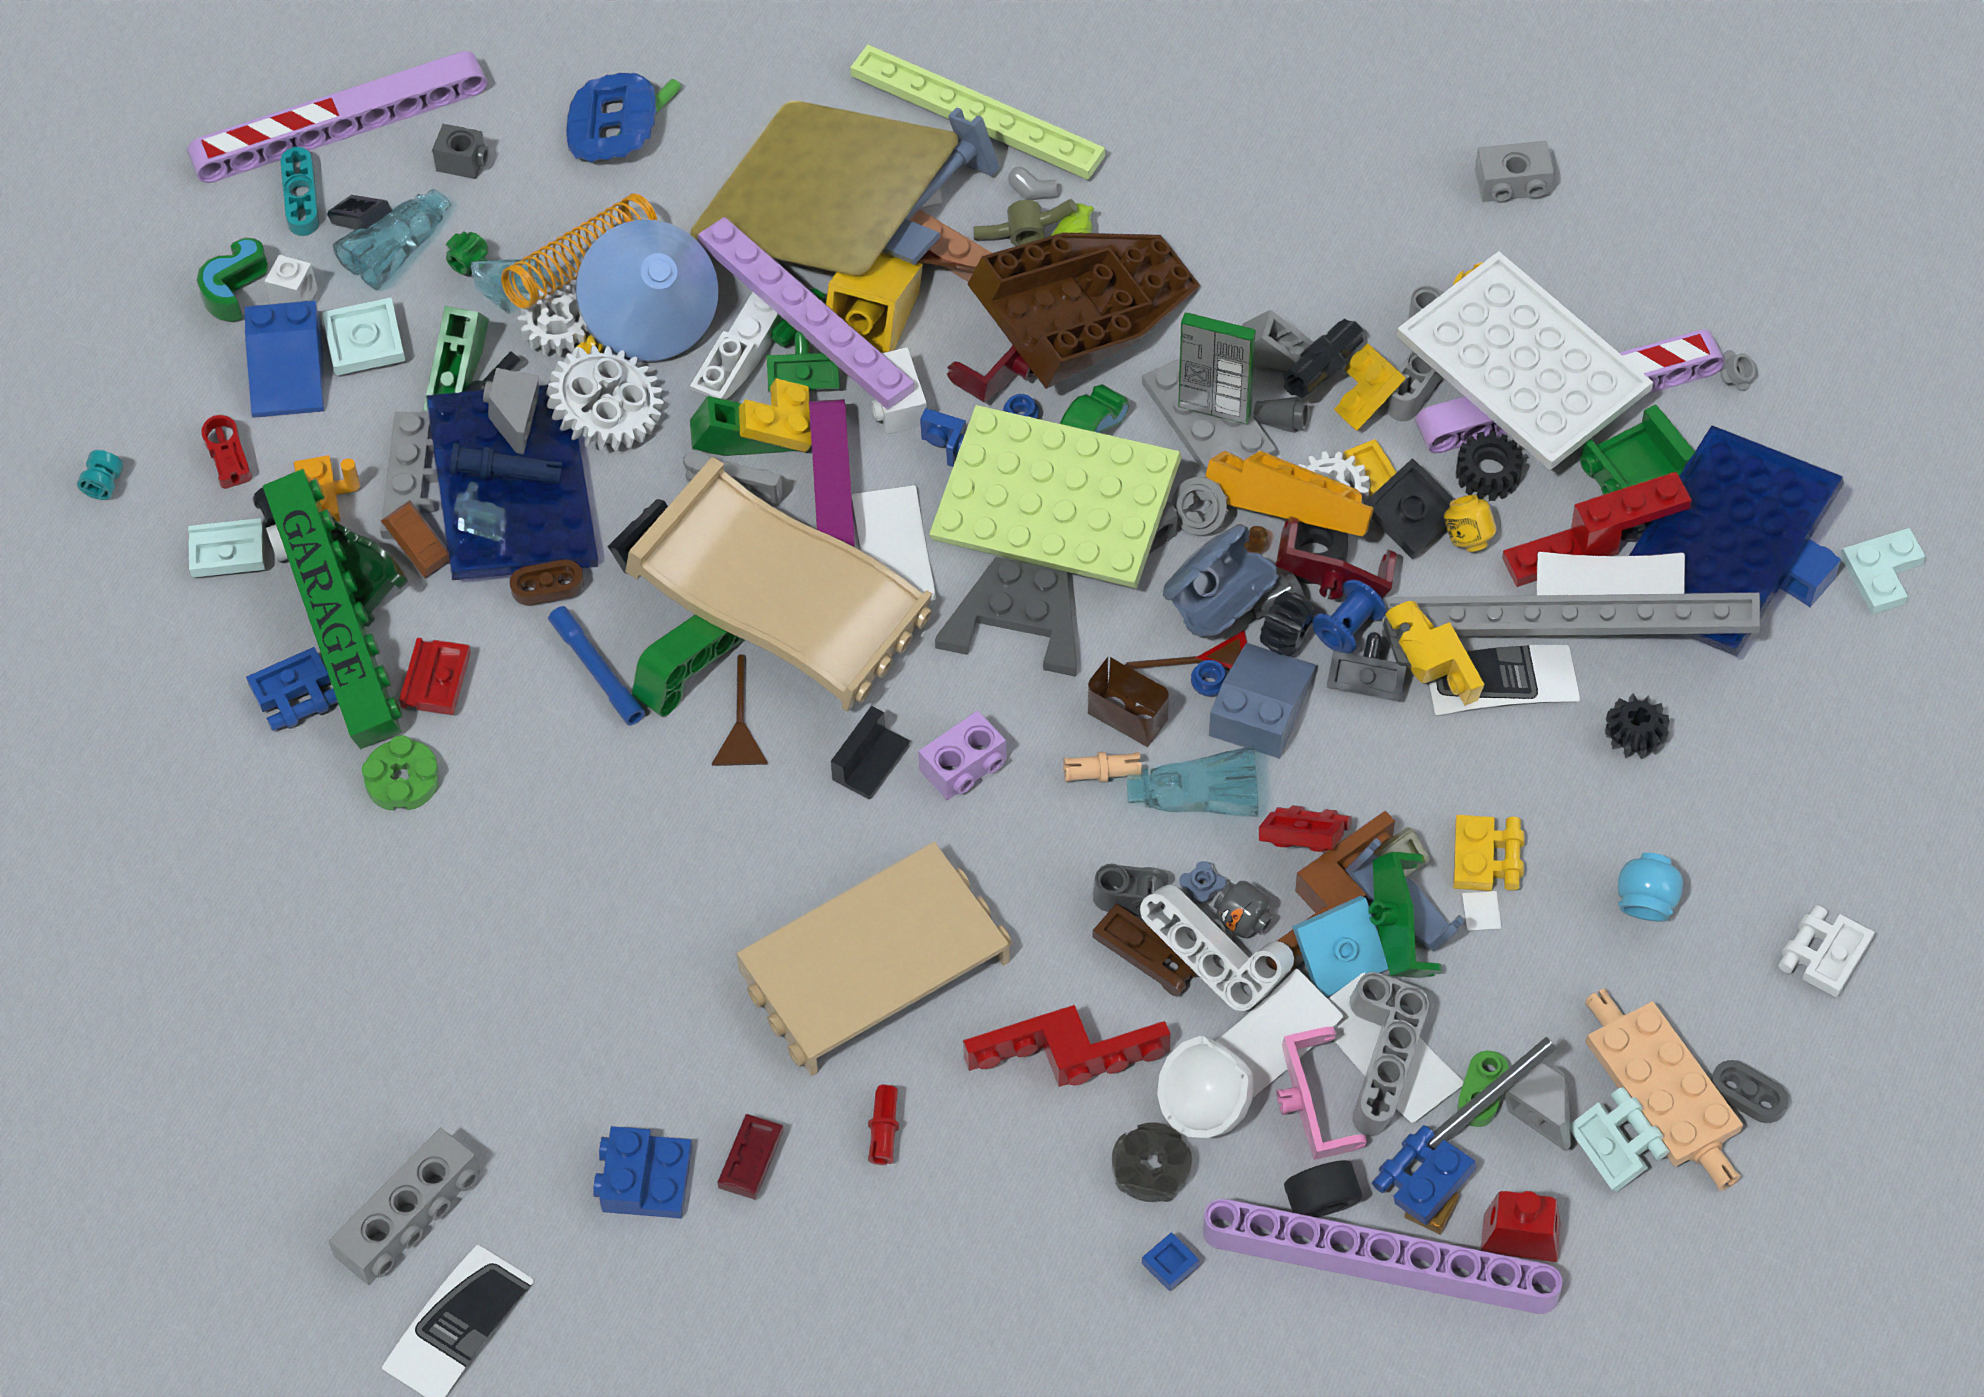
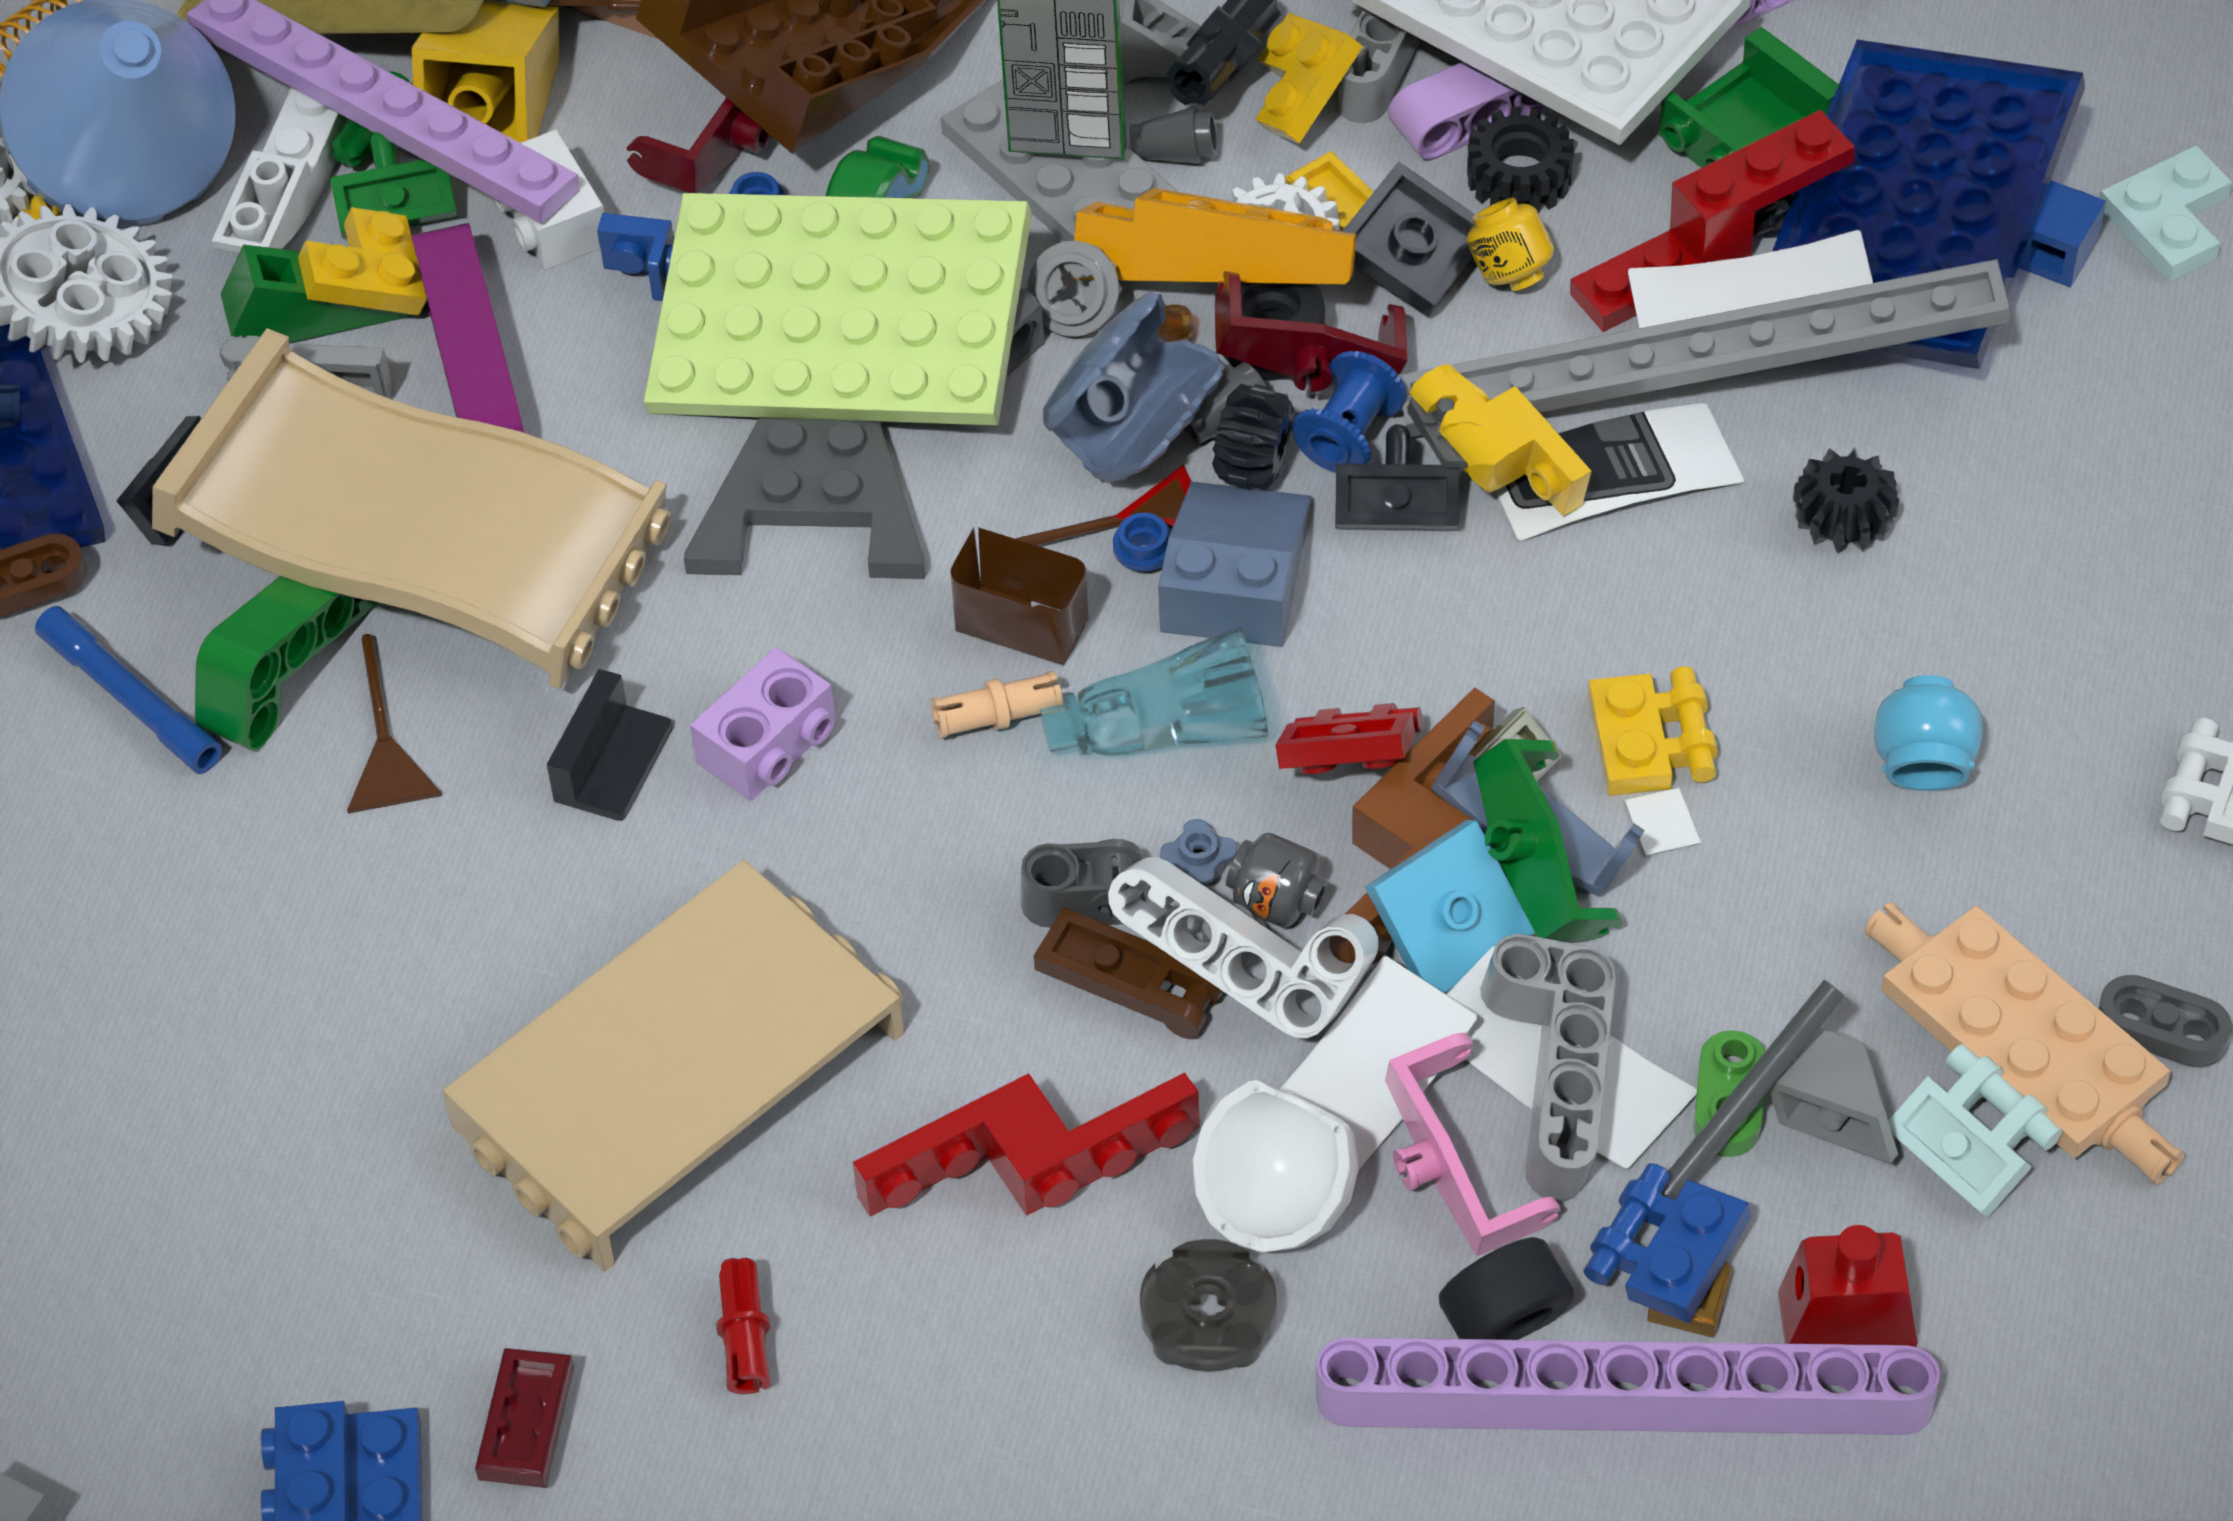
camera: 10 degrees left, 5 degrees down
(894, 534) = (585, 405): white sticker -> none
(1170, 1261) = (1273, 1459): blue plate -> none

